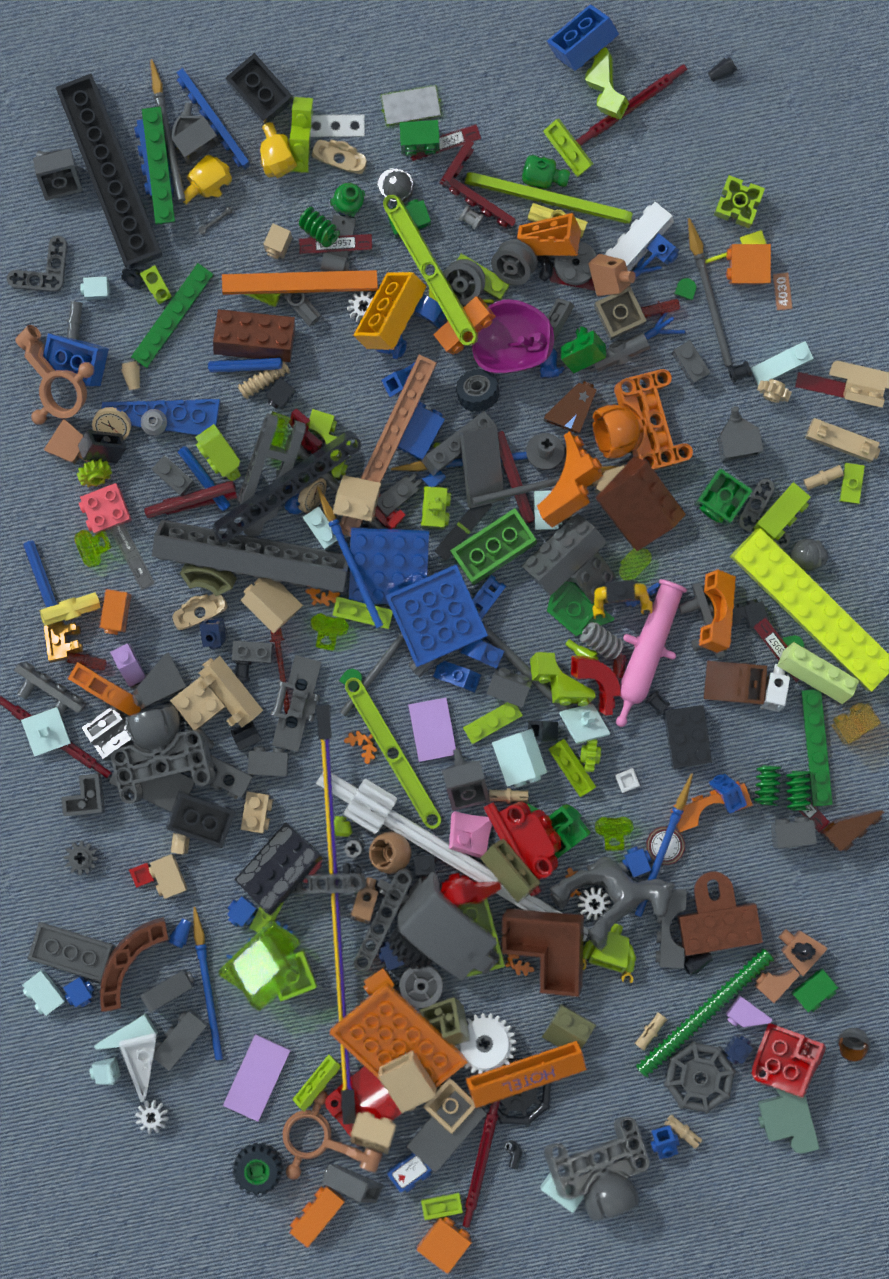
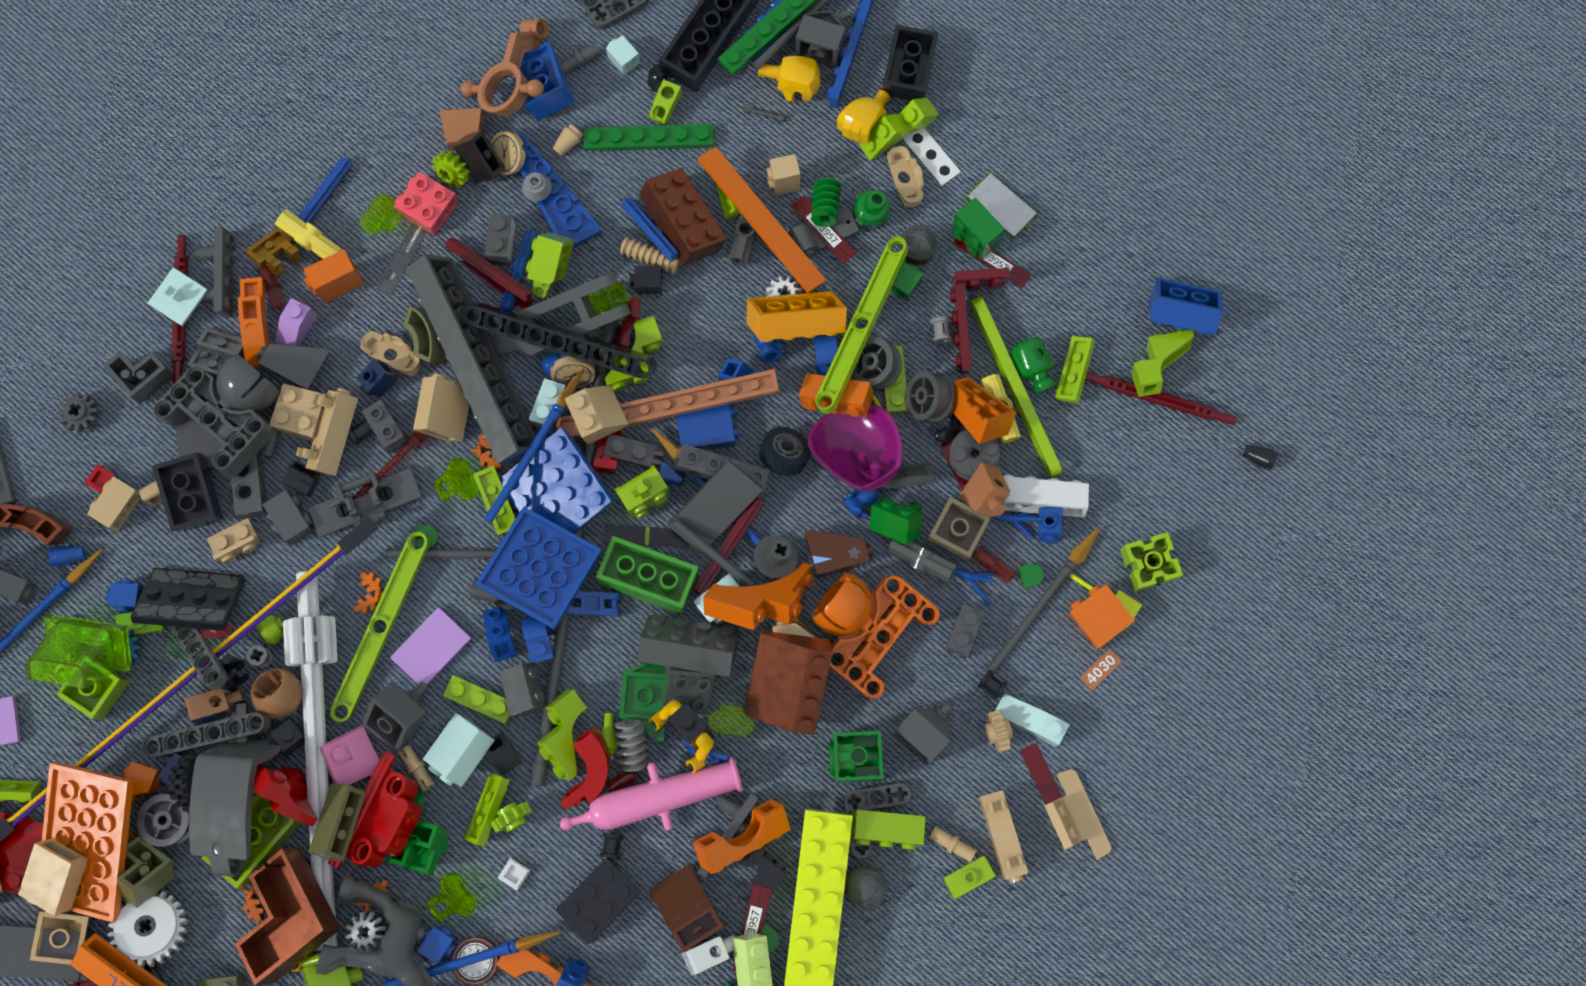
camera: 55 degrees right, 10 degrees down
(584, 723) = (537, 788): light aqua piece -> none

